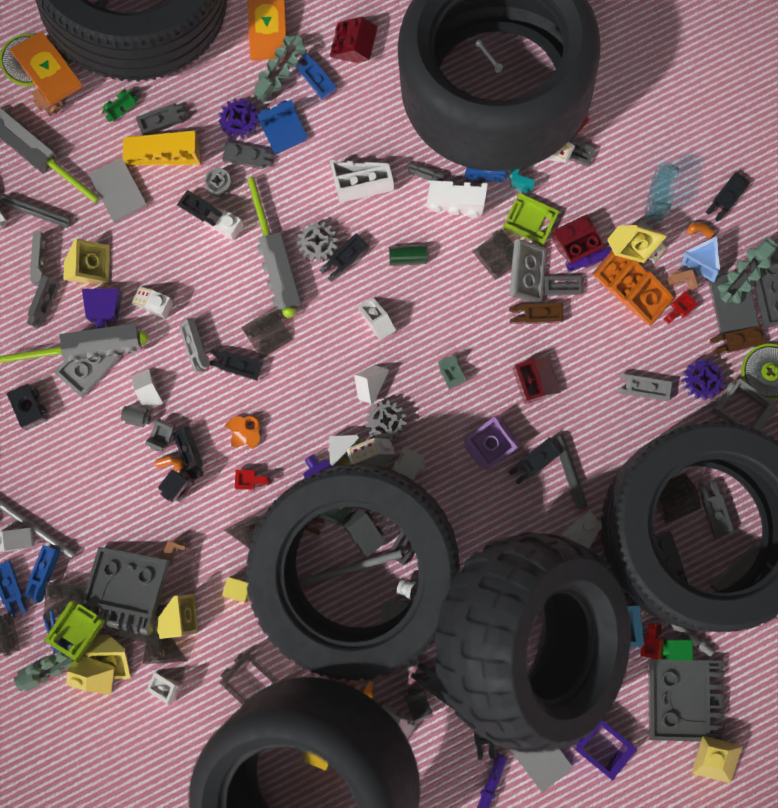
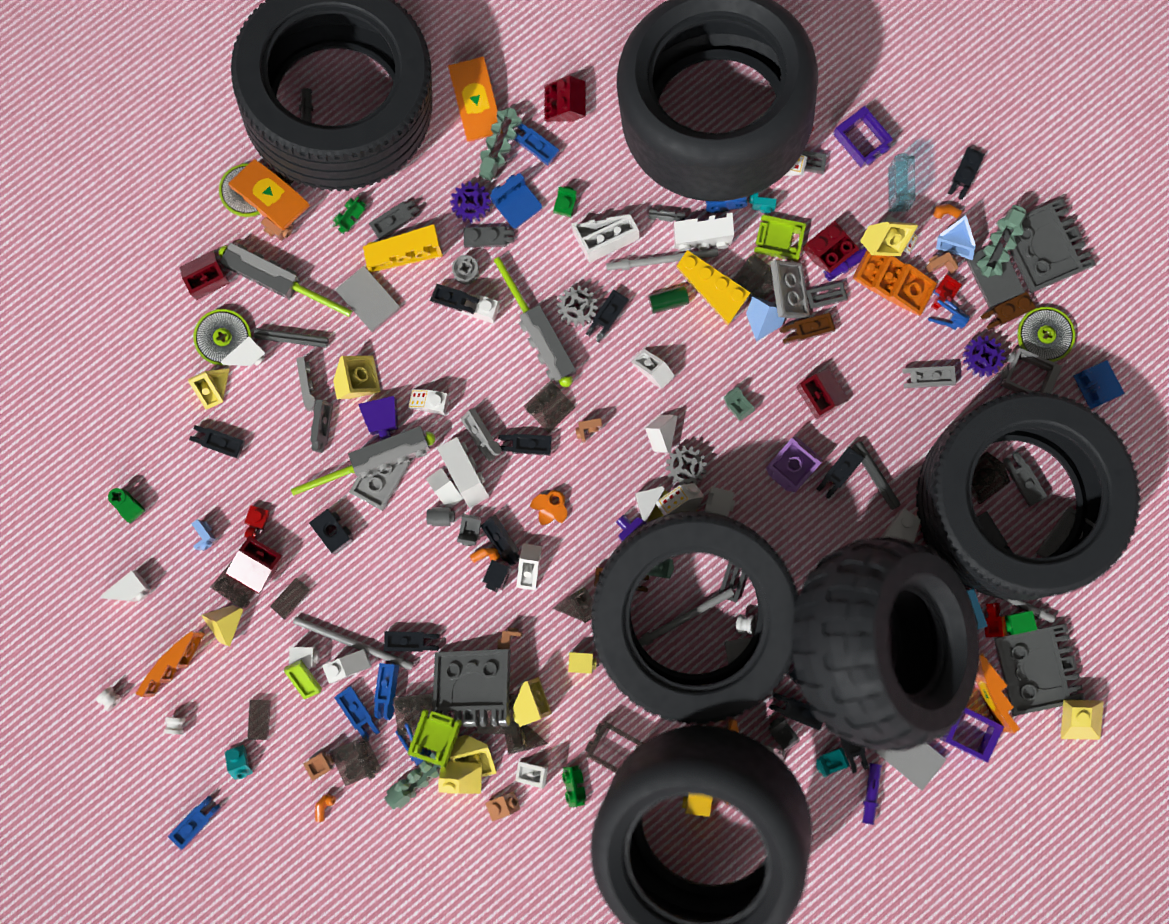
camera: 10 degrees left, 0 degrees up
(75, 530) = (408, 641): none -> black hinge
(128, 712) = (503, 806): none -> nougat bracket
(167, 377) = (463, 472): none -> white wedge
(200, 716) = (574, 795): none -> green hinge
(209, 484) = (529, 566): none -> white slope
(247, 479) = (564, 553): red plate -> none
(302, 361) = (591, 426): none -> nougat bracket
(330, 138) = (565, 201): none -> green bracket
(363, 531) = (691, 578): dark grey brick -> none
(374, 212) = (626, 264): none -> light grey bar
(457, 256) = (714, 287): none -> yellow wedge
(459, 744) = (832, 762): none -> teal bracket
(495, 293) = (763, 317): none -> light blue slope
(498, 67) = (724, 99): dark grey hinge -> none
(627, 122) = (875, 127): none -> dark purple window
(633, 707) = (991, 688): none -> orange slope
(687, 336) = (958, 318): none -> blue plant

